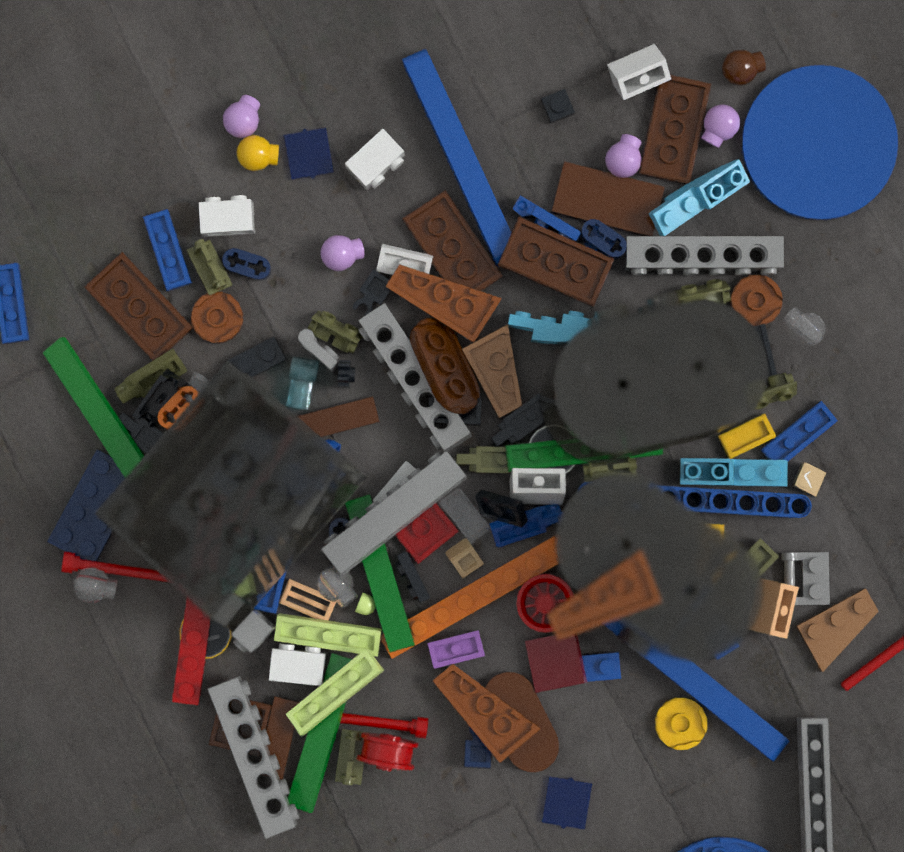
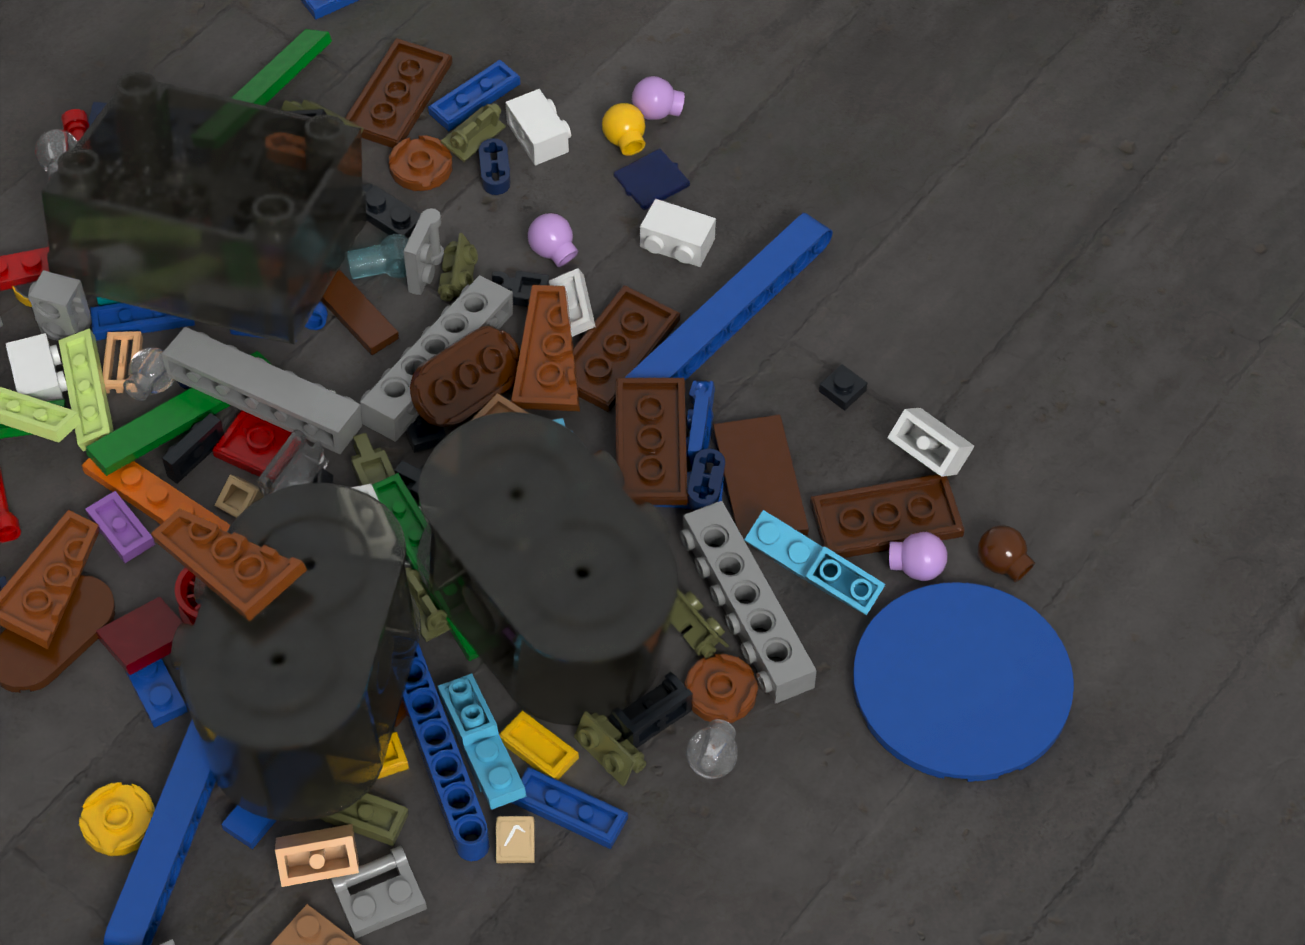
camera: 65 degrees right, 30 degrees down
(346, 374) = (411, 290): black plate -> none
(365, 605) = (137, 408): yellowish green hinge -> none
(624, 157) = (819, 471): lavender piece -> none

